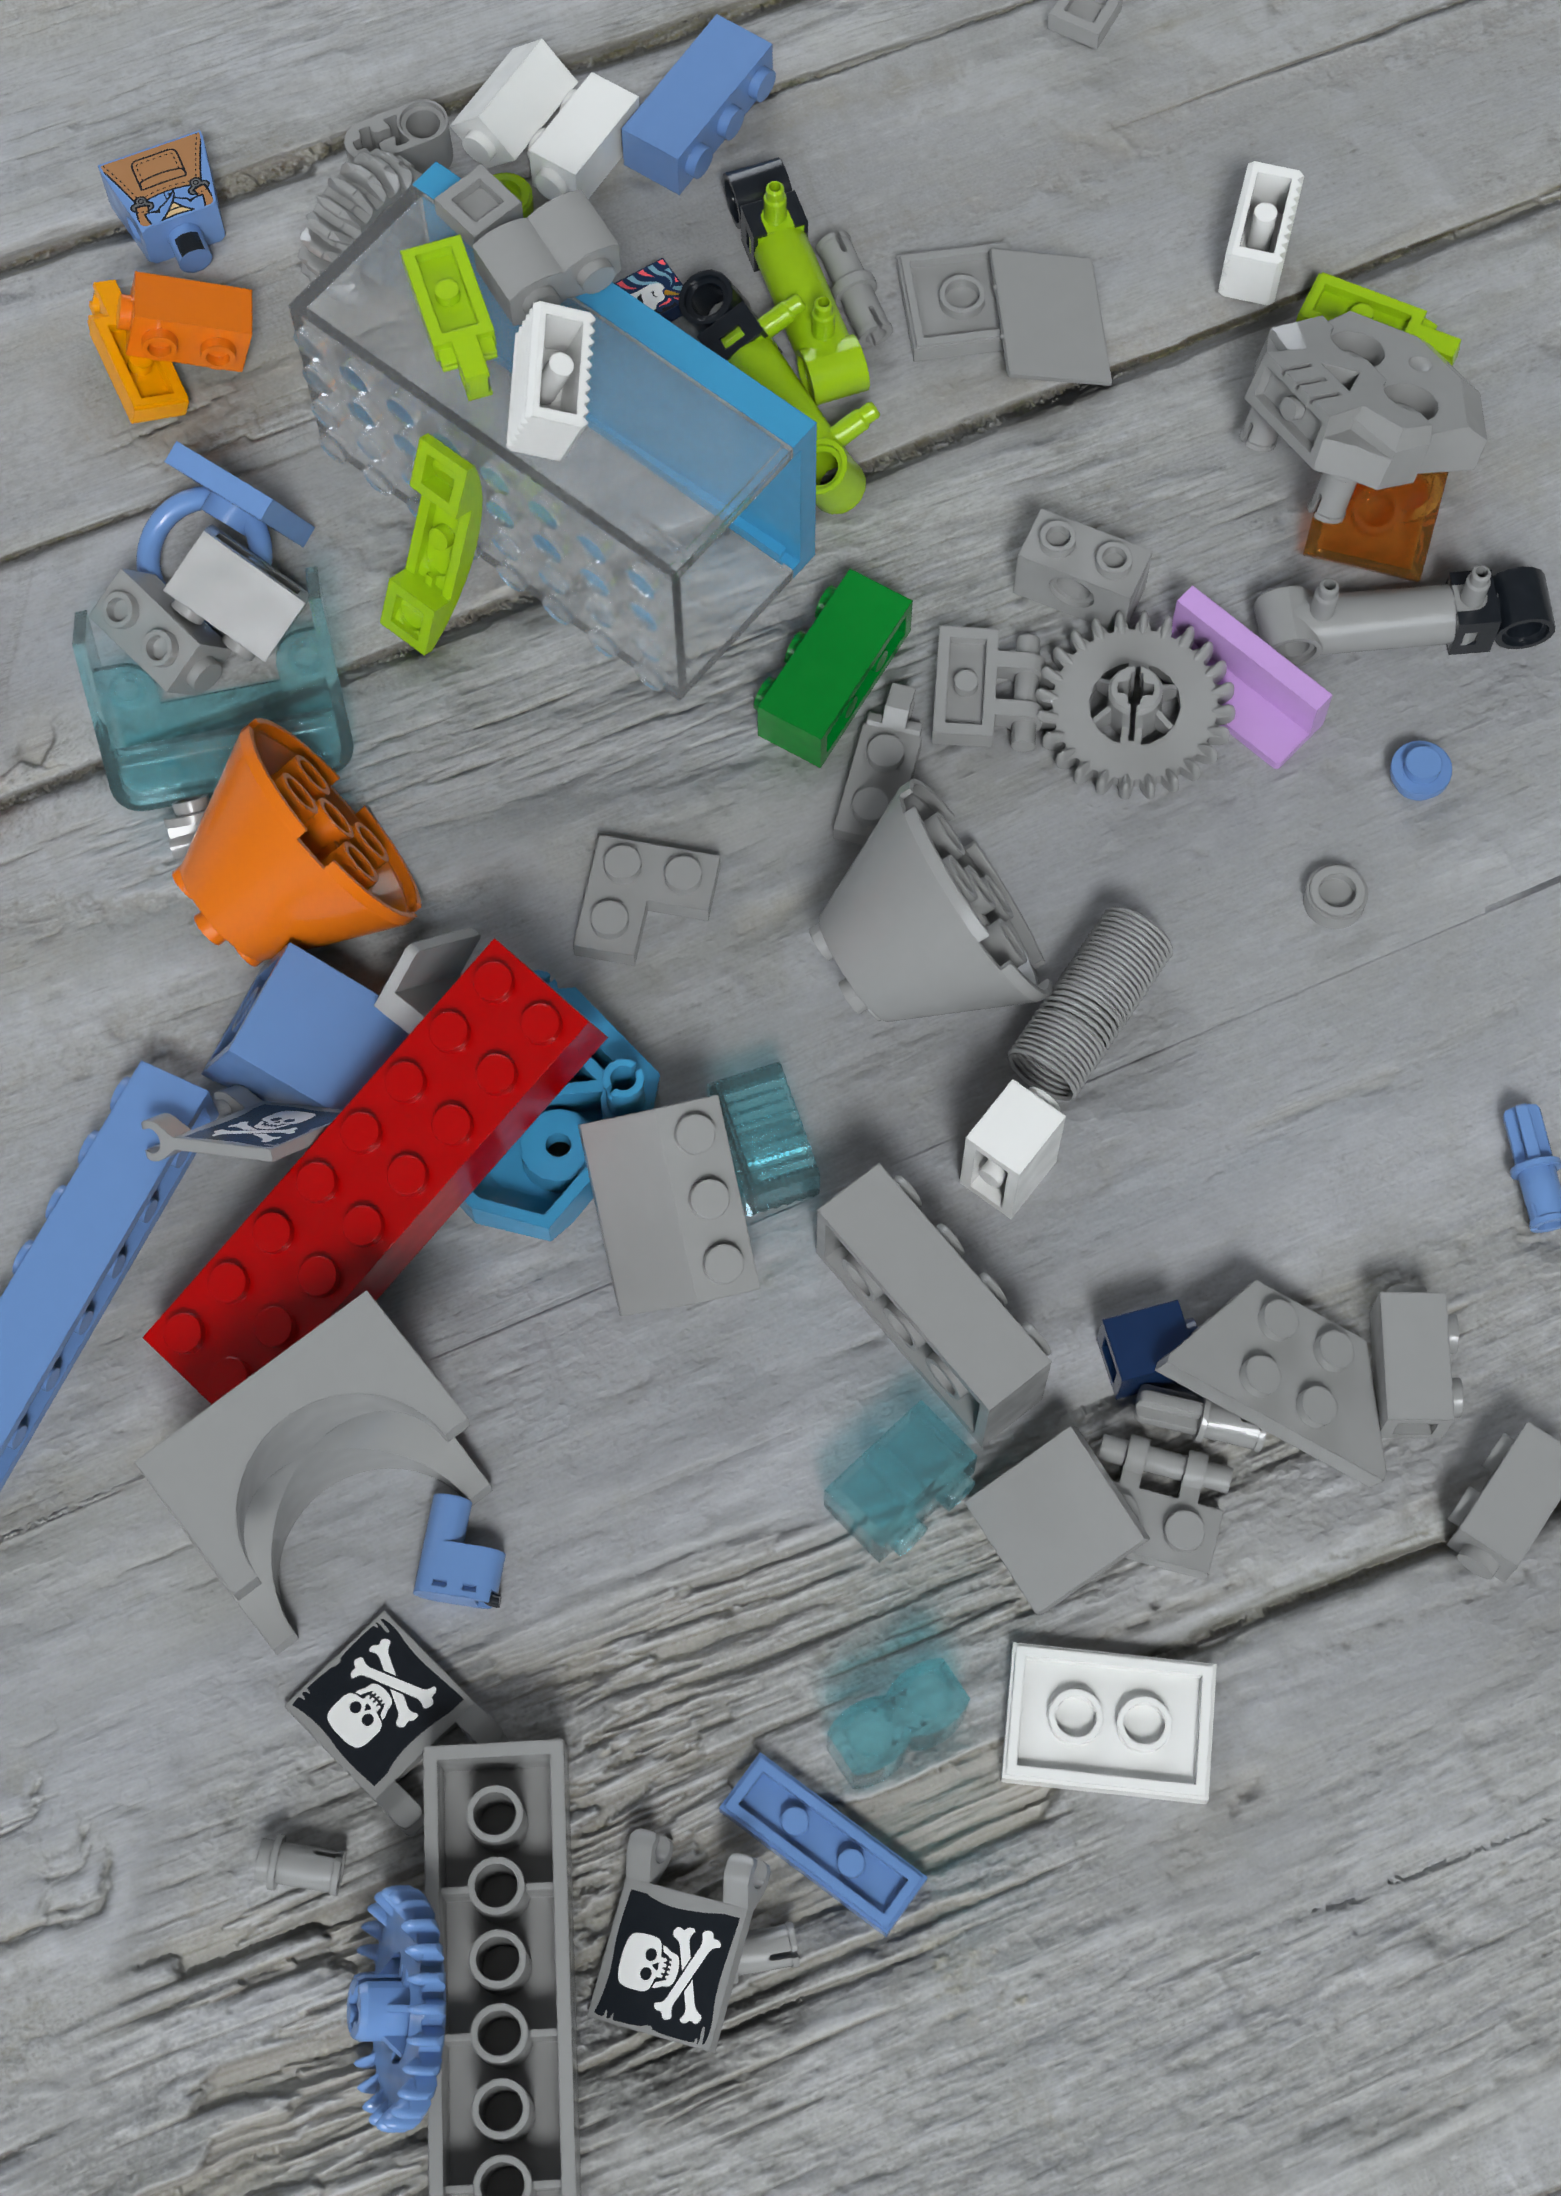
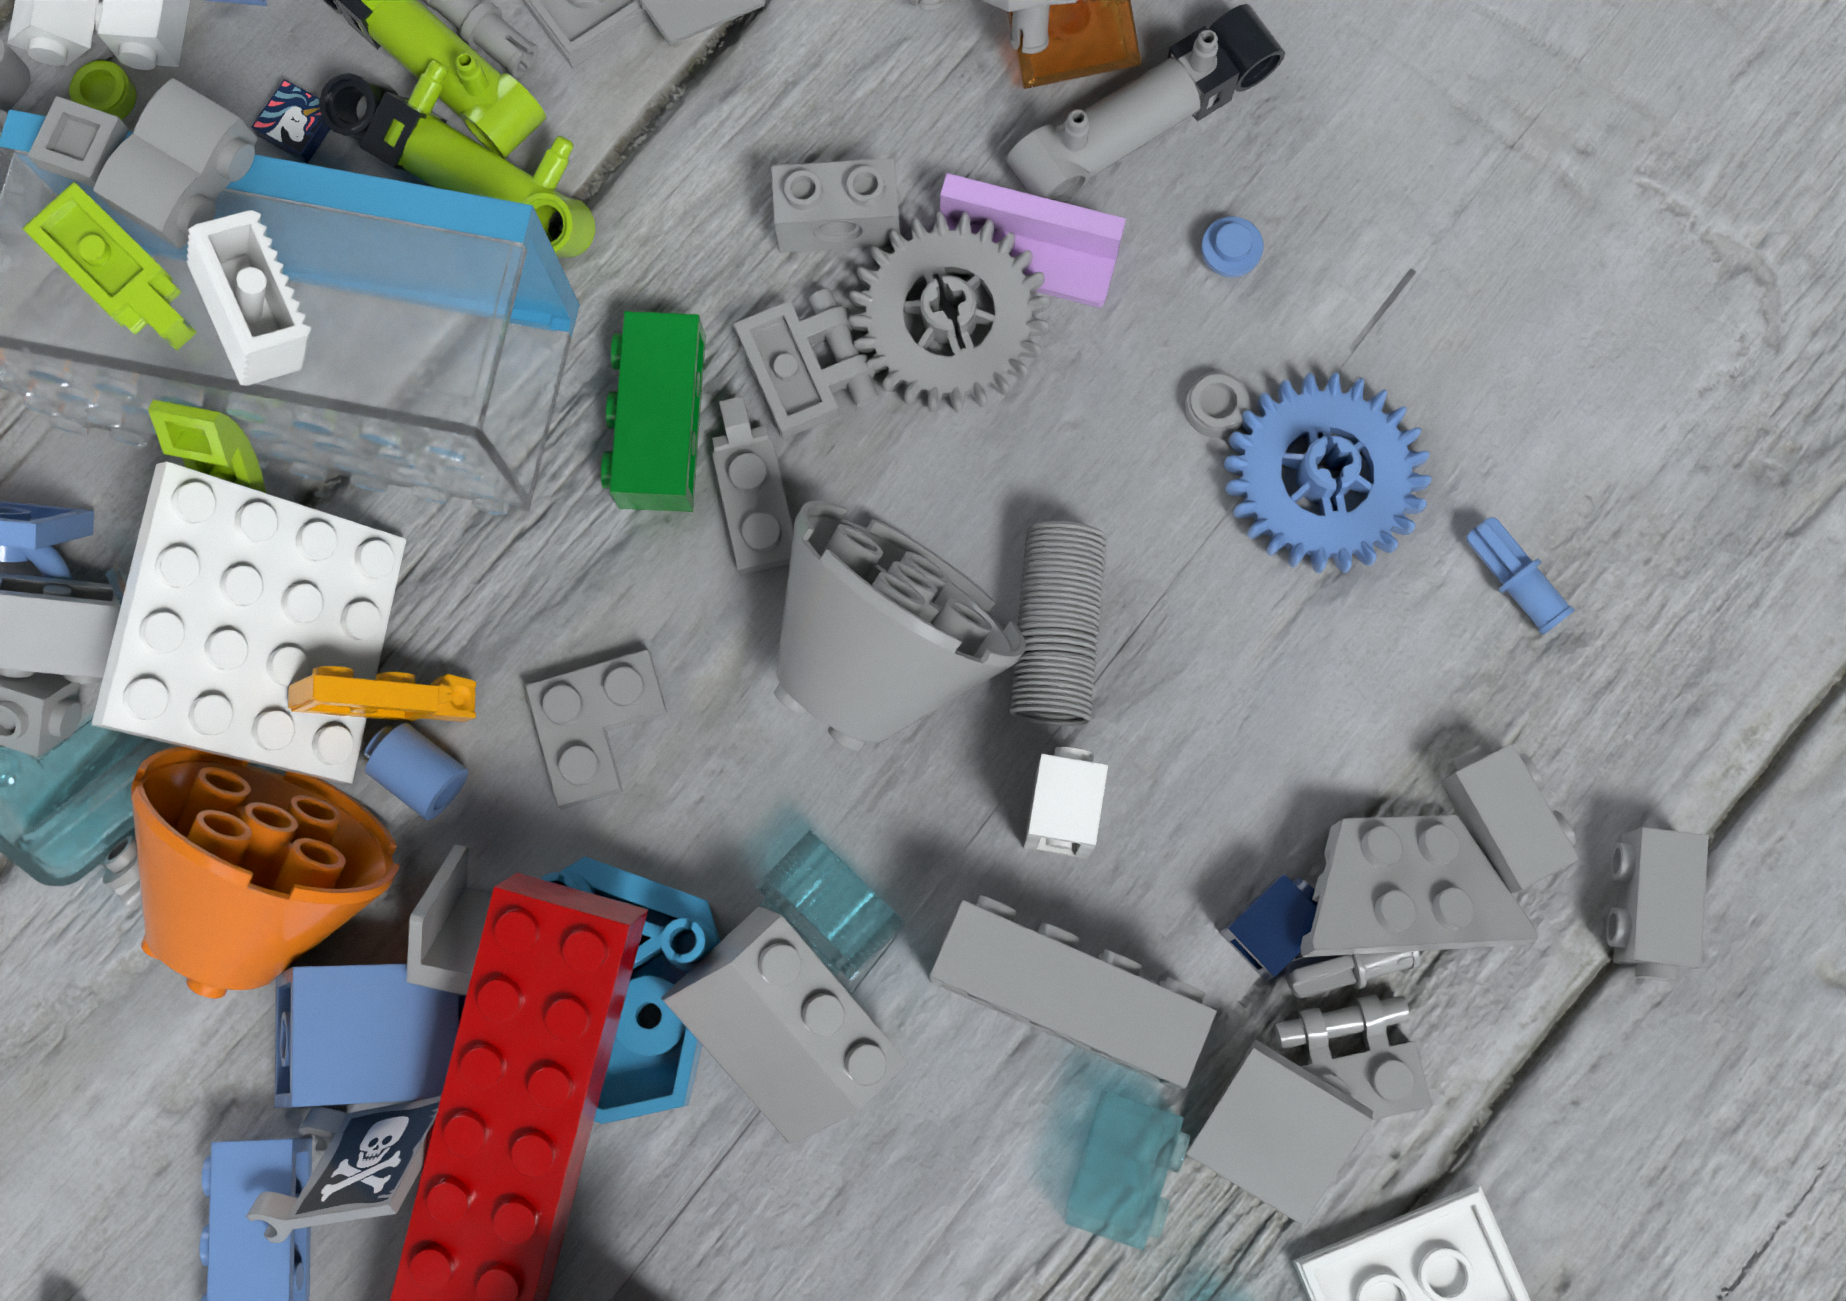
camera: 25 degrees left, 10 degrees up
(401, 667) = (232, 608): none -> white plate
(469, 856) = (414, 769): none -> medium blue brick
(476, 779) = (390, 696): none -> light orange hinge
(1436, 958) = (1359, 428): none -> medium blue gear

